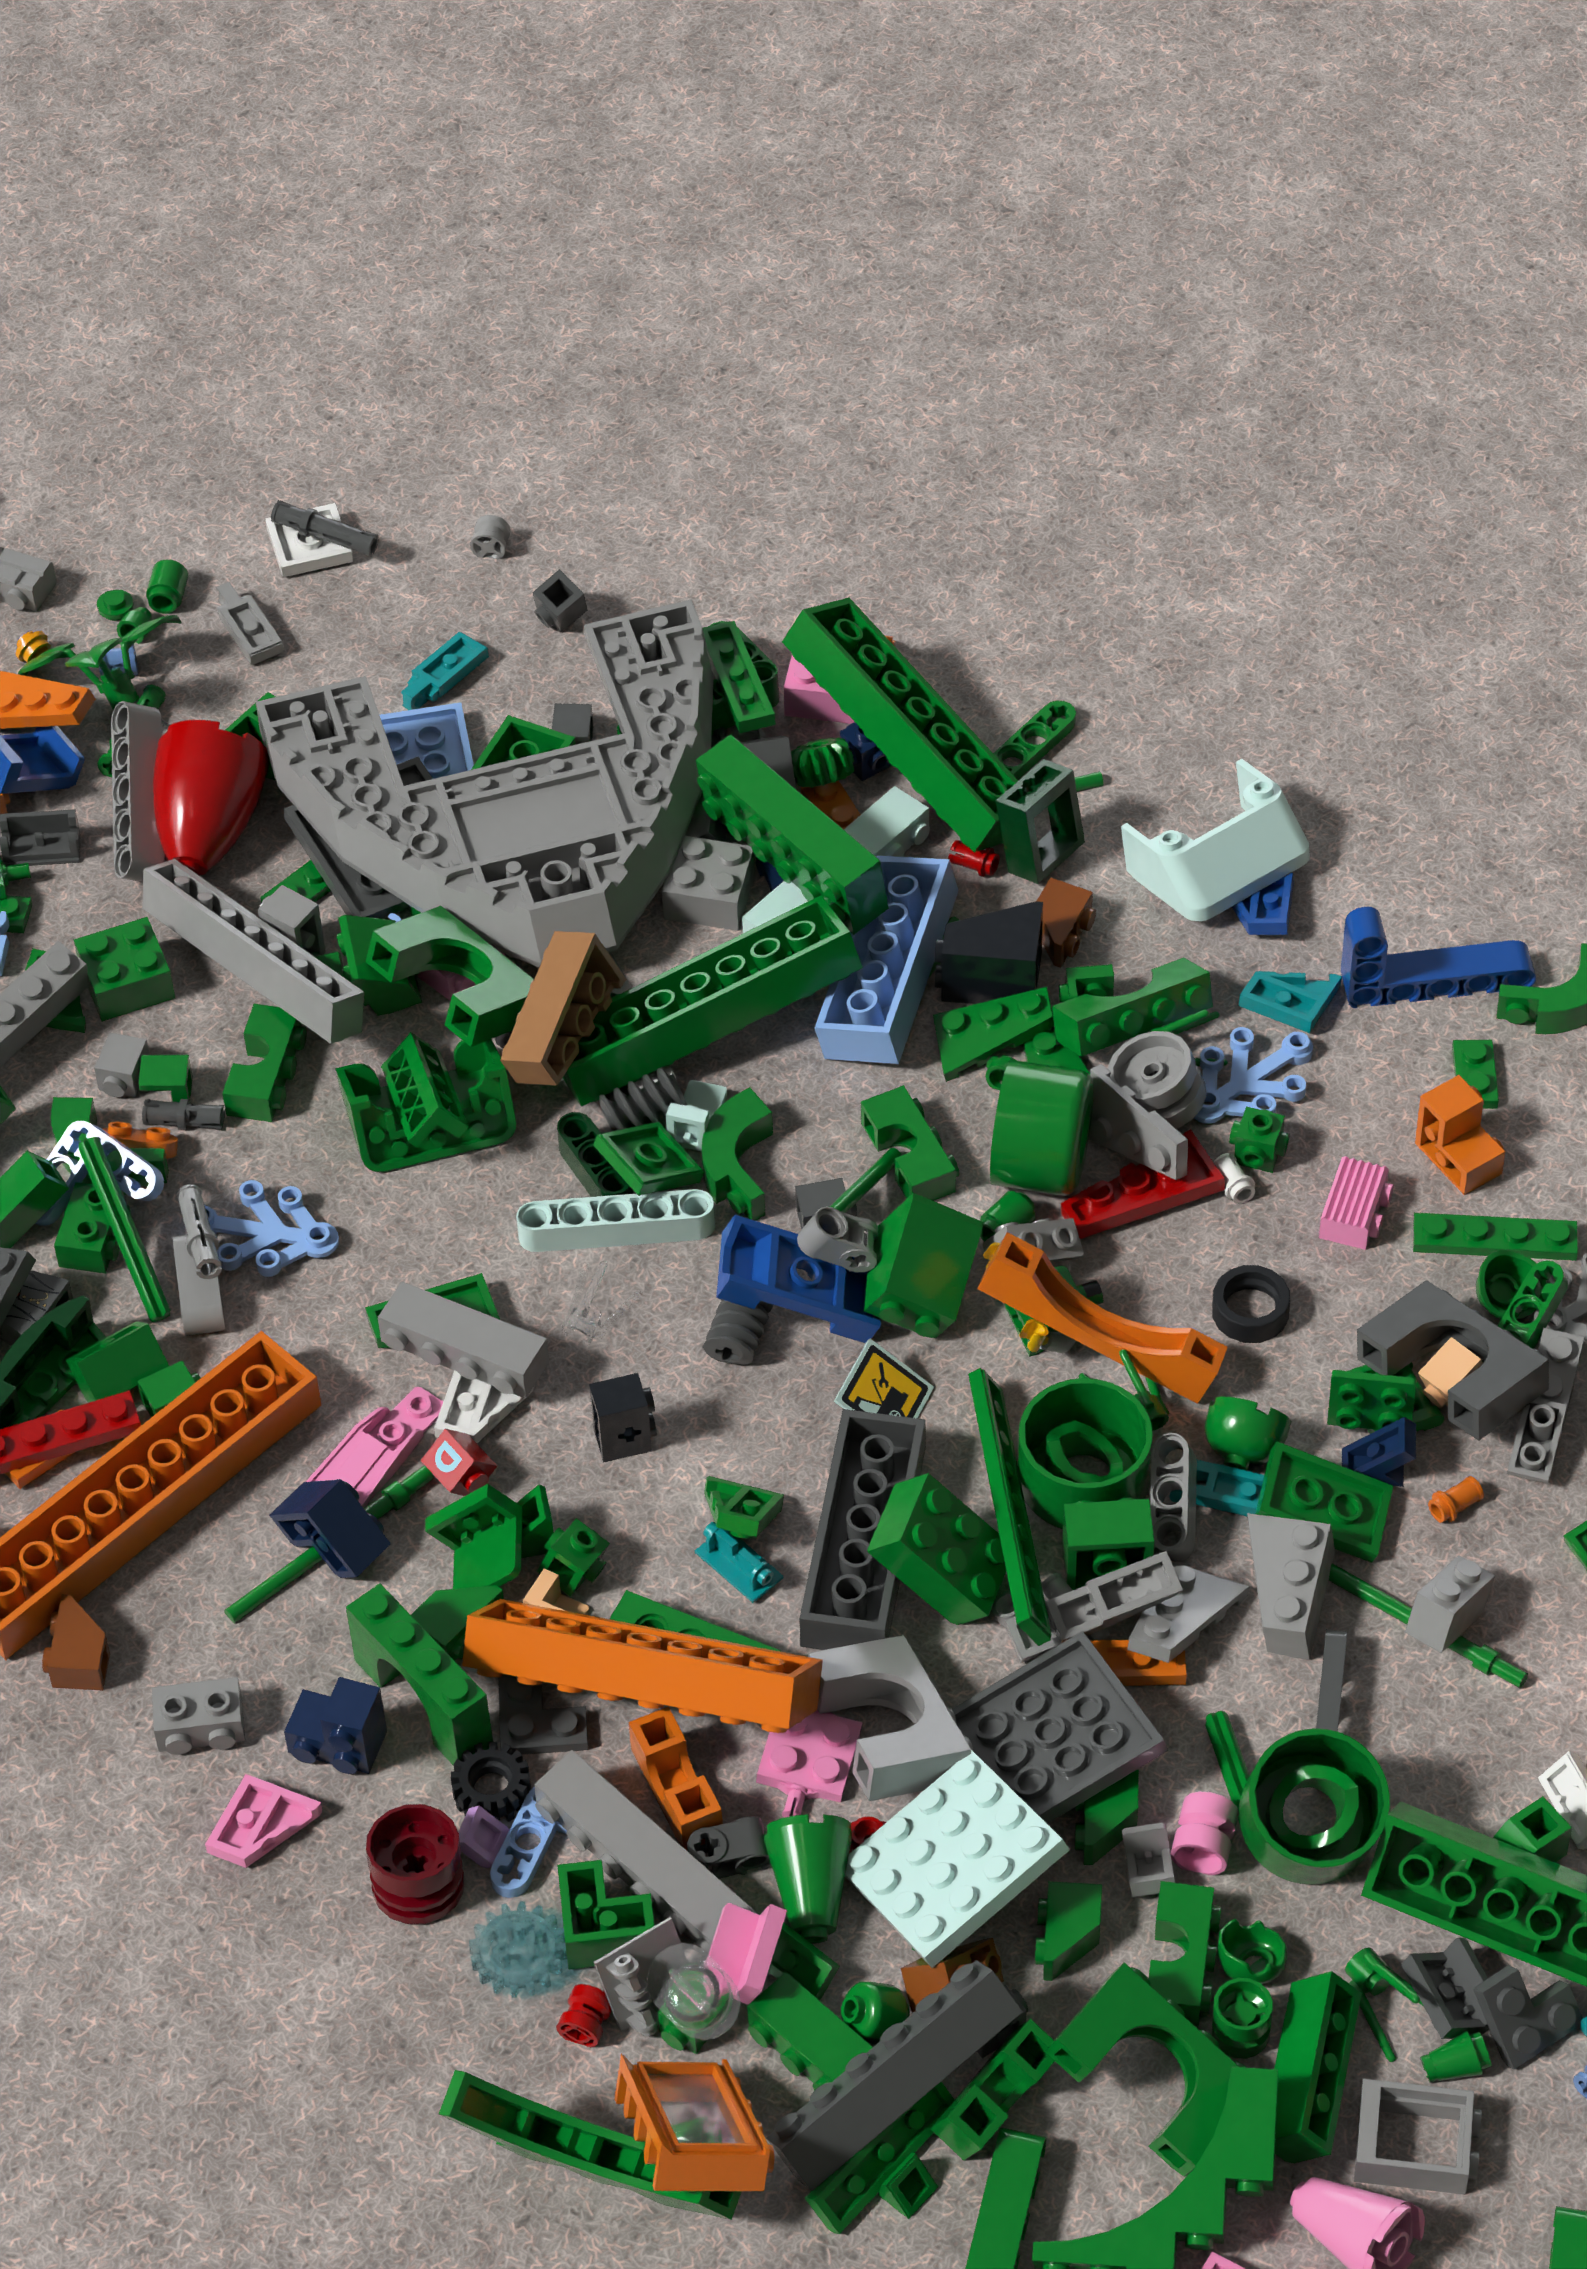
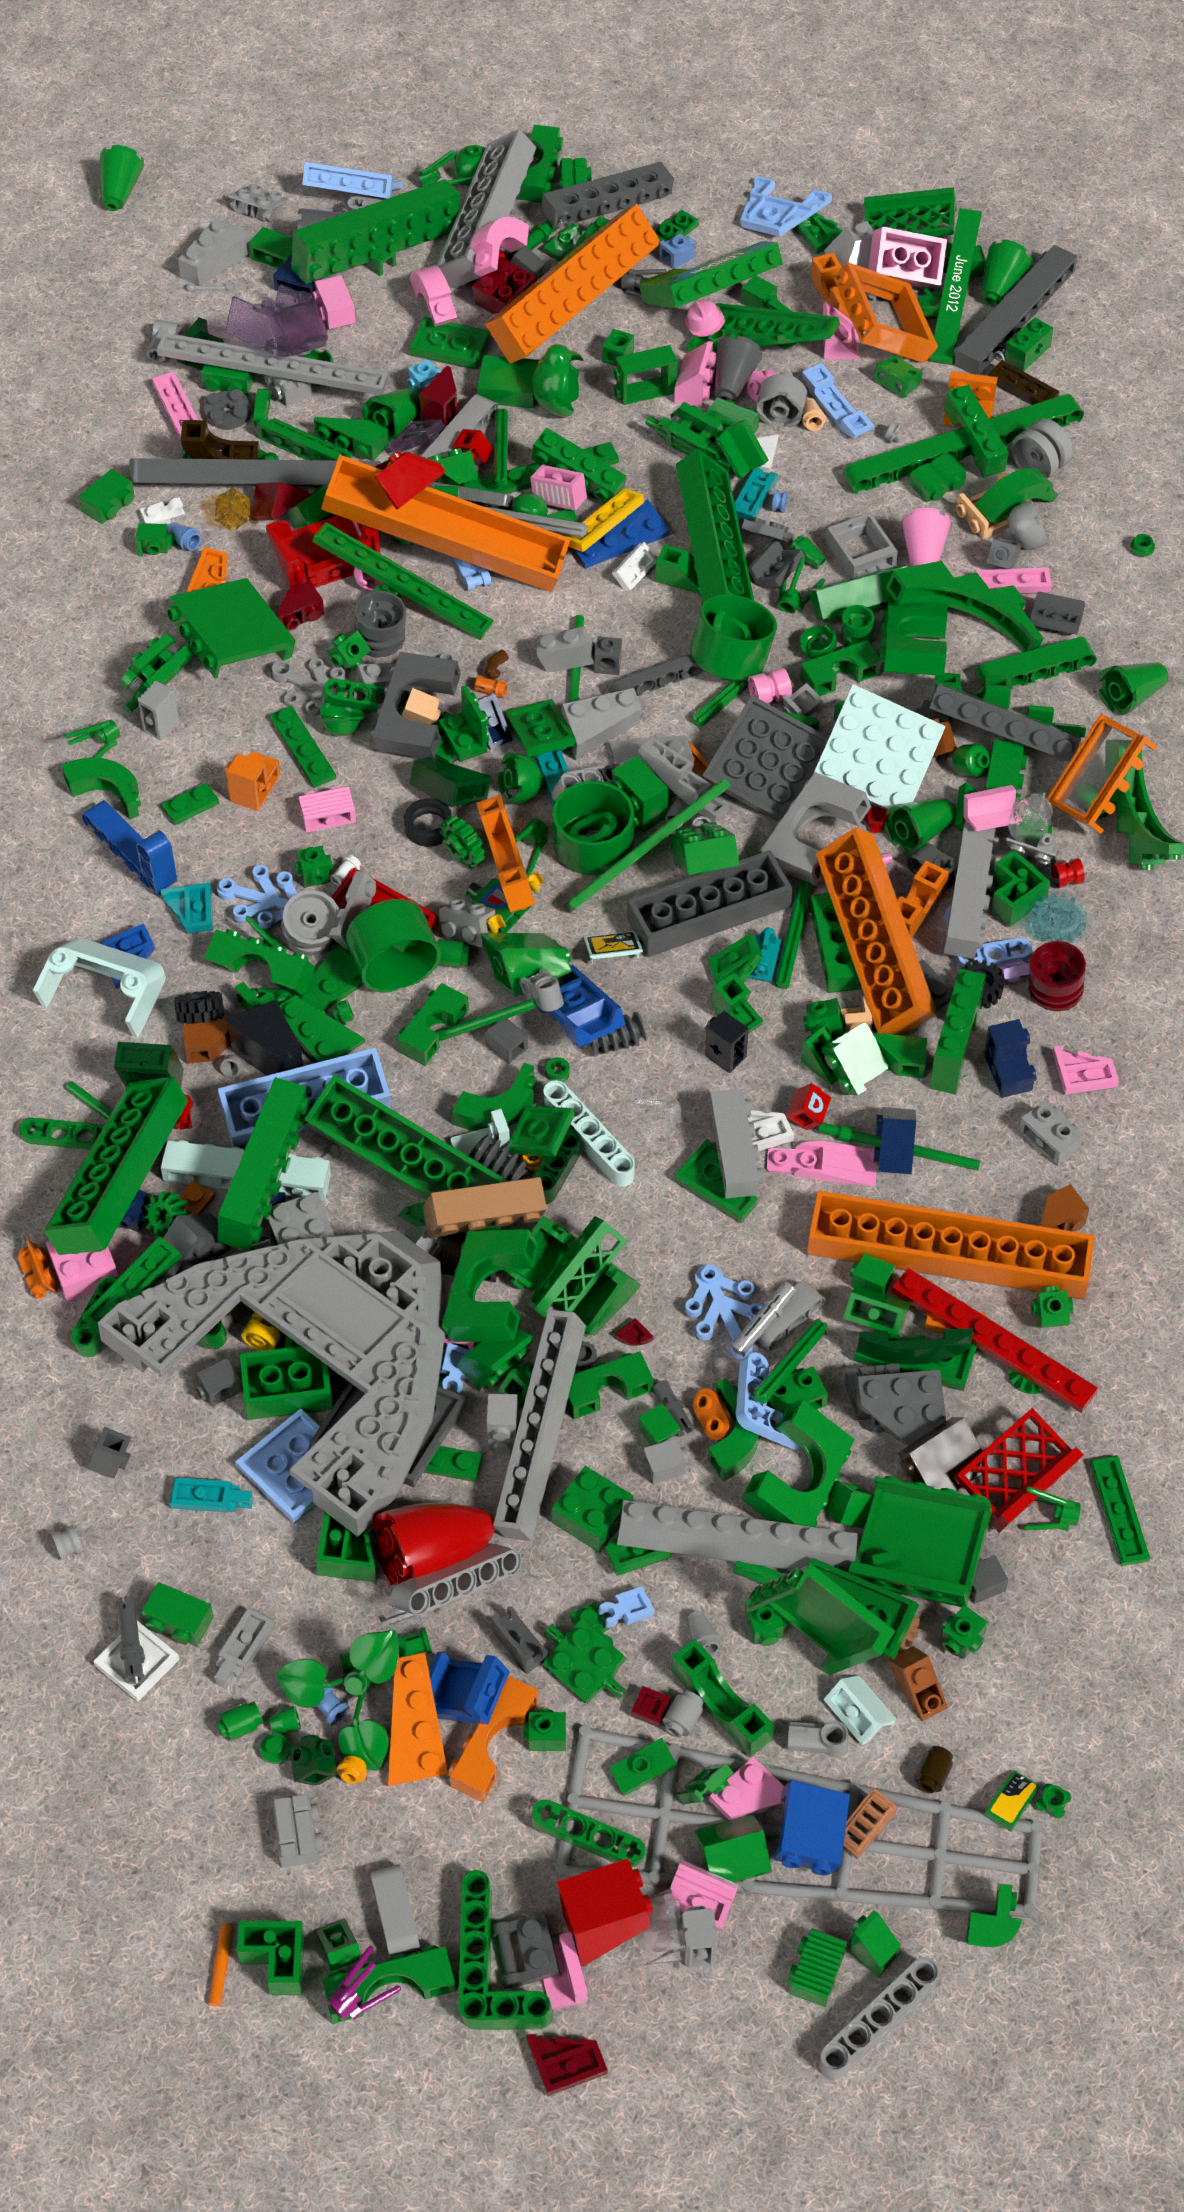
camera: 125 degrees left, 5 degrees up
(67, 615) = (313, 1760): none -> dark green brick
(311, 1133) = (634, 1334): none -> dark red tile
(319, 579) = (177, 1614): none -> green brick
(322, 1066) = (586, 1355): none -> dark grey piece
(679, 1470) = (732, 997): none -> green brick
(732, 1603) = (793, 935): none -> green axle
(1094, 927) = (199, 1007): none -> black tyre
(1173, 1299) = (462, 841): none -> green gear
(1295, 1345) = (449, 782): none -> dark green slope
(1410, 1661) = (608, 655): none -> dark grey brick
(1505, 1527) = (491, 664): none -> reddish brown arm

